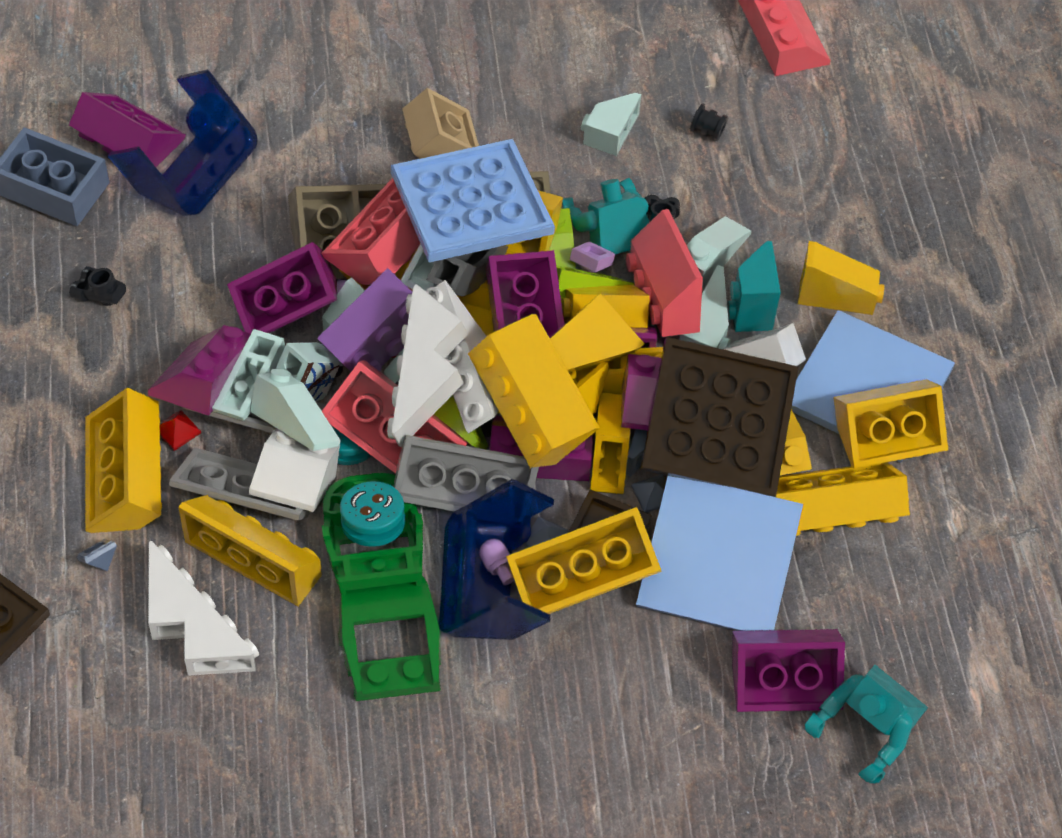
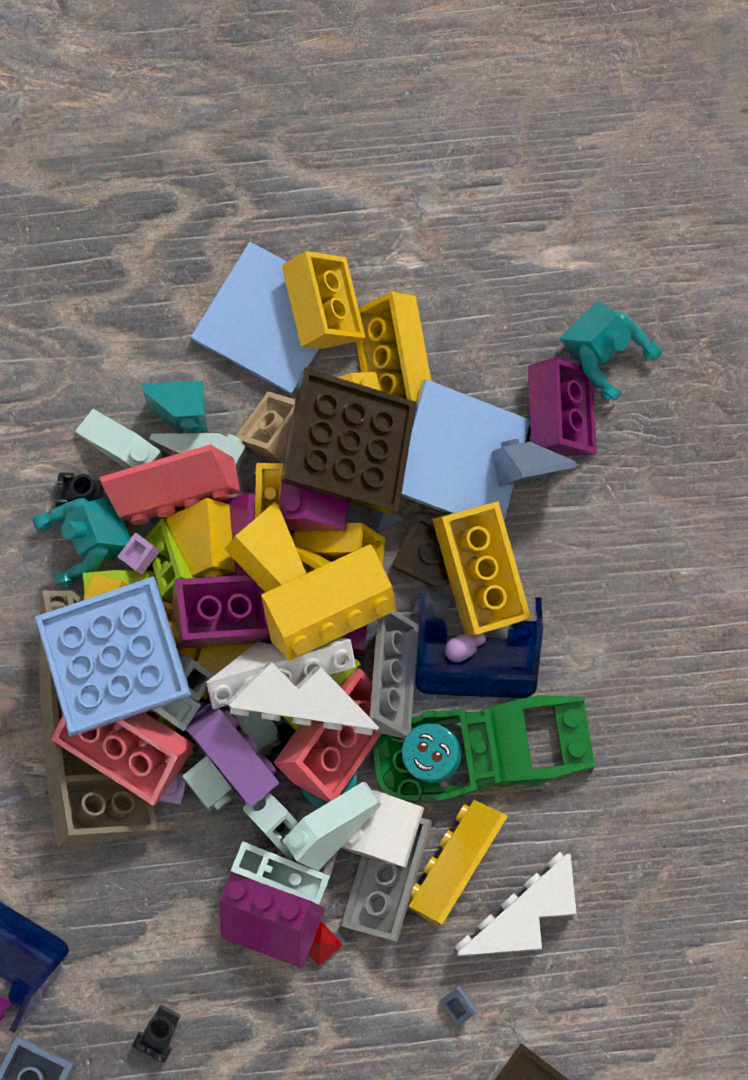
camera: 90 degrees left, 20 degrees up
(122, 464) = (366, 990): yellow slope -> none
(284, 290) = (185, 843): magenta slope -> none
(715, 615) = (527, 462): none -> sand blue slope
(775, 345) = (251, 404): white slope -> none
(838, 282) = (166, 333): yellow slope -> none

